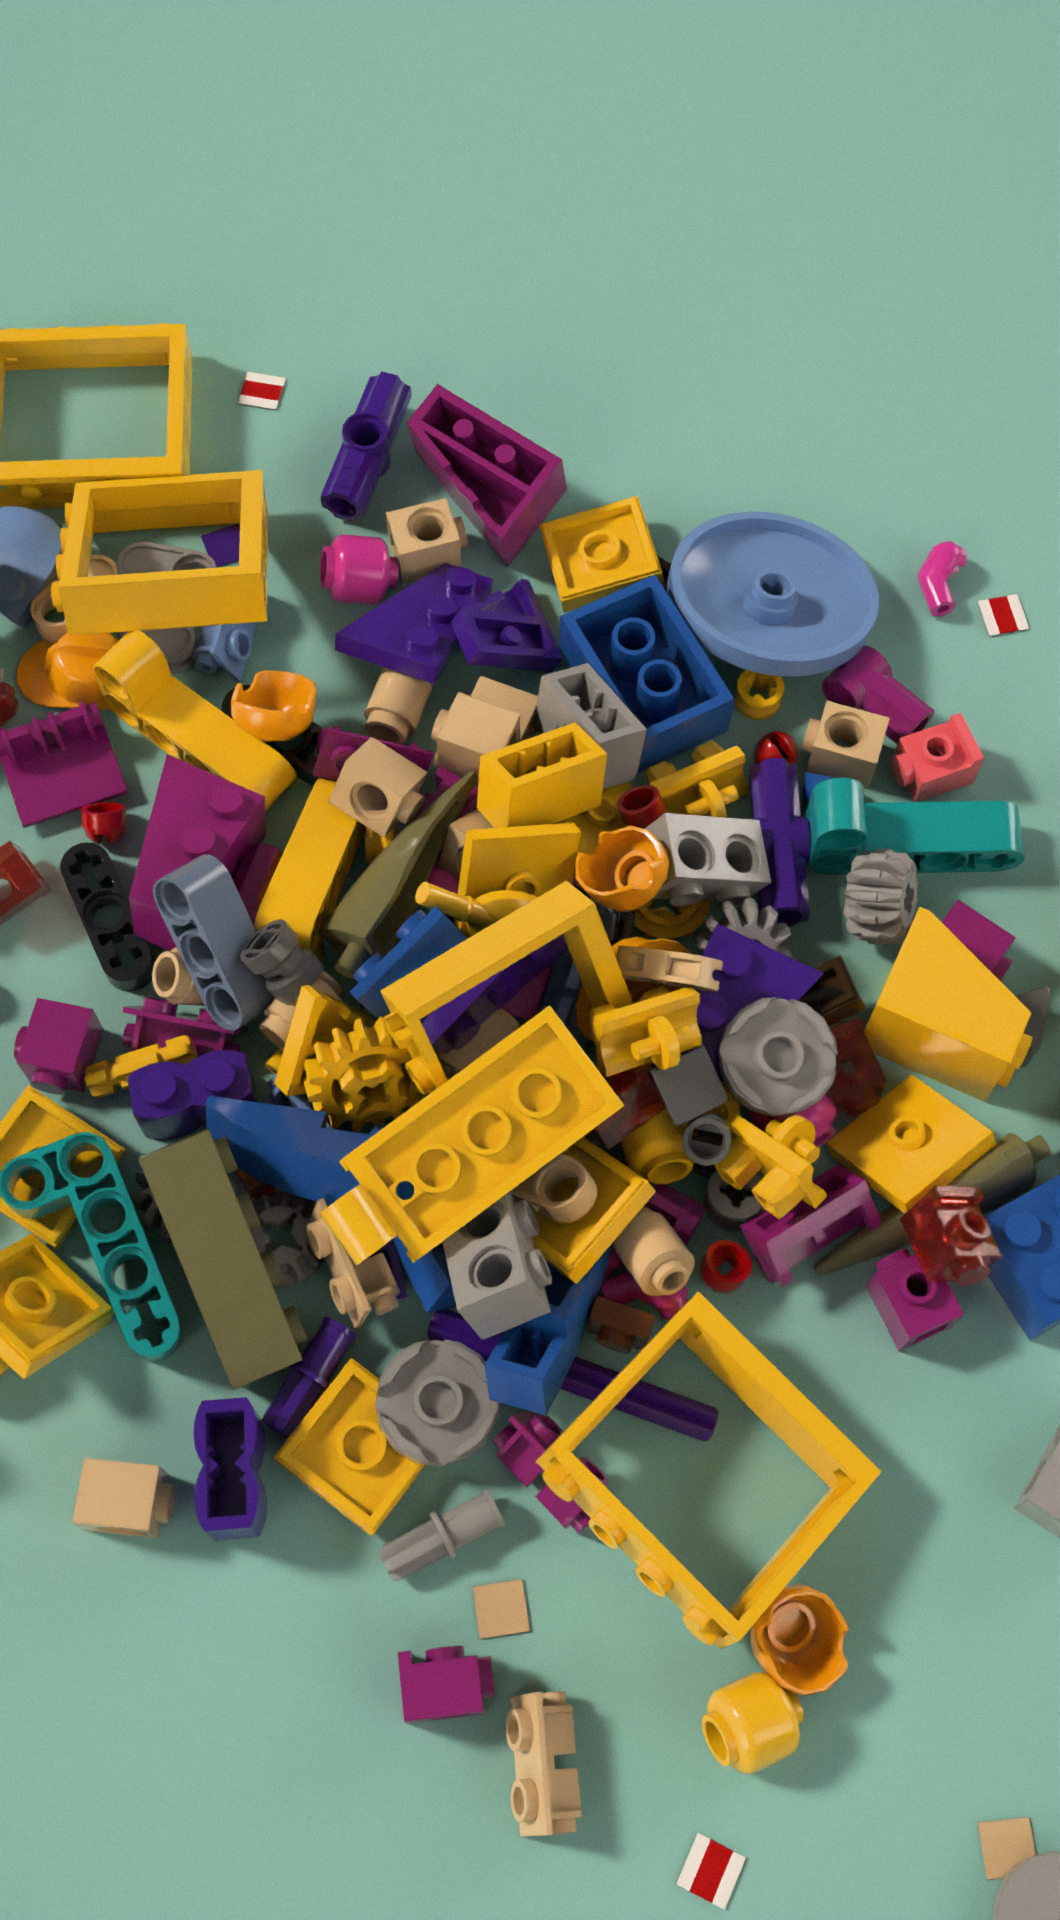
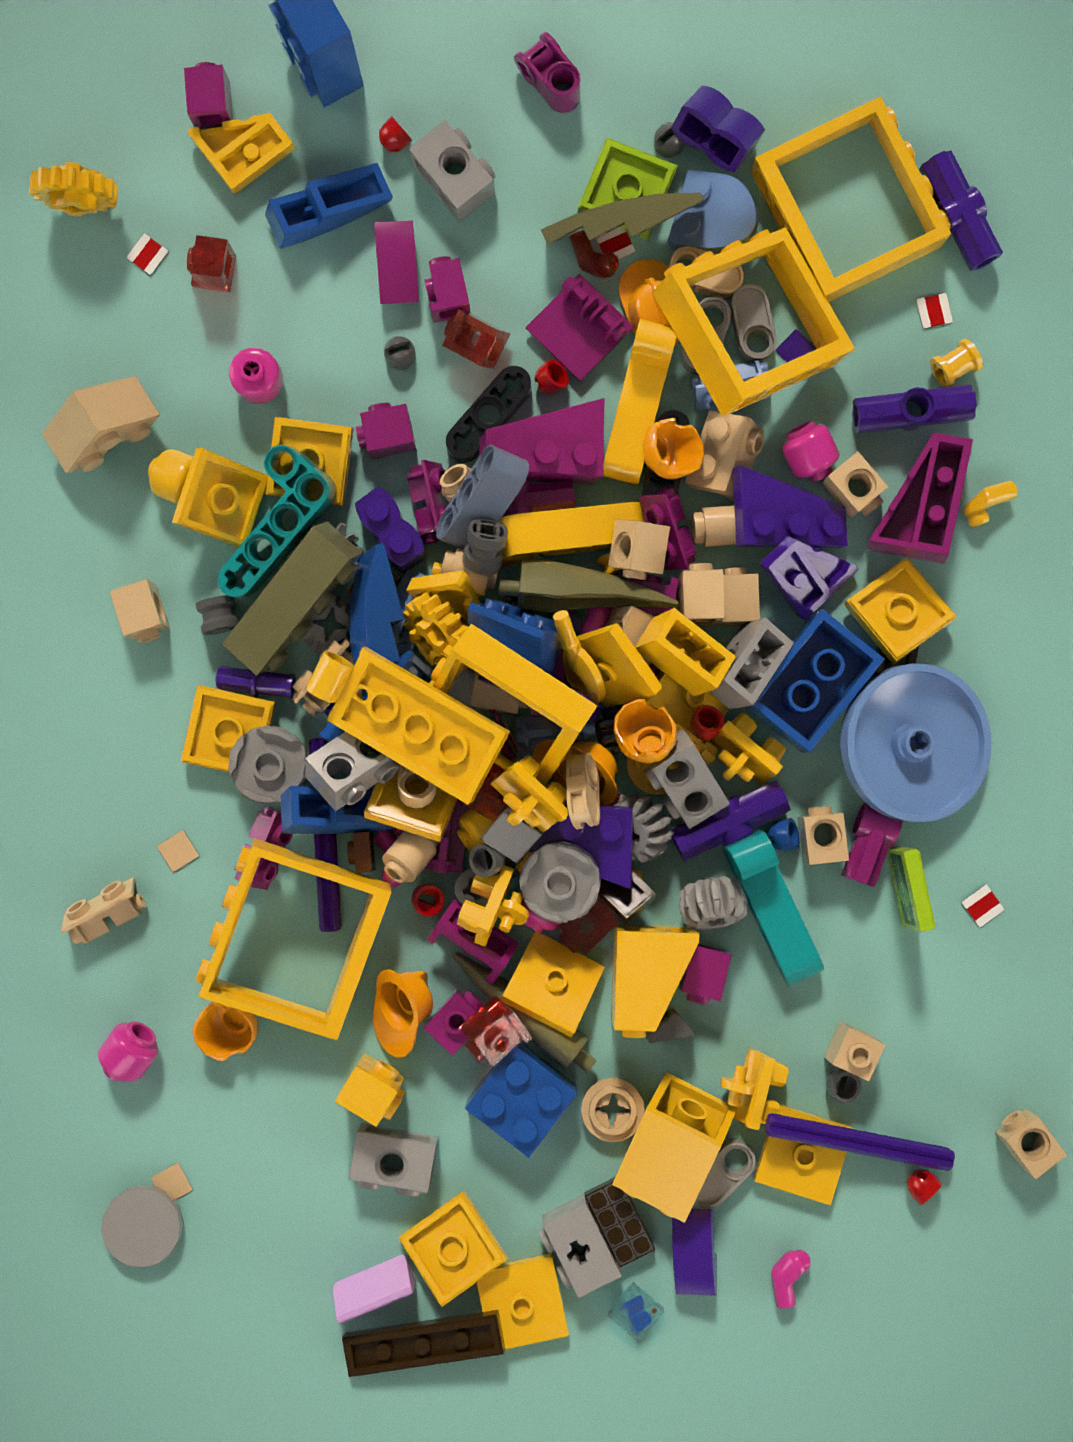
camera: 70 degrees right, 20 degrees up
(104, 1077) = (397, 487): yellow axle -> none
(166, 302) = (964, 209): none -> dark purple piece
(186, 1384) = (217, 614): none -> dark grey wheel
(228, 1488) = (171, 669): dark purple brick -> none
(304, 647) = (726, 444): none -> tan bracket
(336, 377) = (956, 363): none -> yellow bush
(441, 1536) = (199, 800): light grey axle -> none
(444, 1685) = (117, 838): magenta brick -> none
(511, 411) = (989, 496): none -> yellow arm
(711, 1871) = (90, 1025): sticker -> none
(752, 1723) = (170, 1018): yellow head -> none
(756, 706) = (828, 764): yellow bush -> none
(767, 748) = (791, 788): red hinge -> none
(778, 1818) = (128, 1051): none -> dark pink head
(871, 1371) = (399, 1009): none -> light orange piece
(934, 573) = (991, 847): dark pink arm -> none
(953, 767) = (848, 915): coral brick -> none
(954, 663) = (911, 888): none -> lime tile
(972, 1448) = (372, 1090): none -> yellow brick

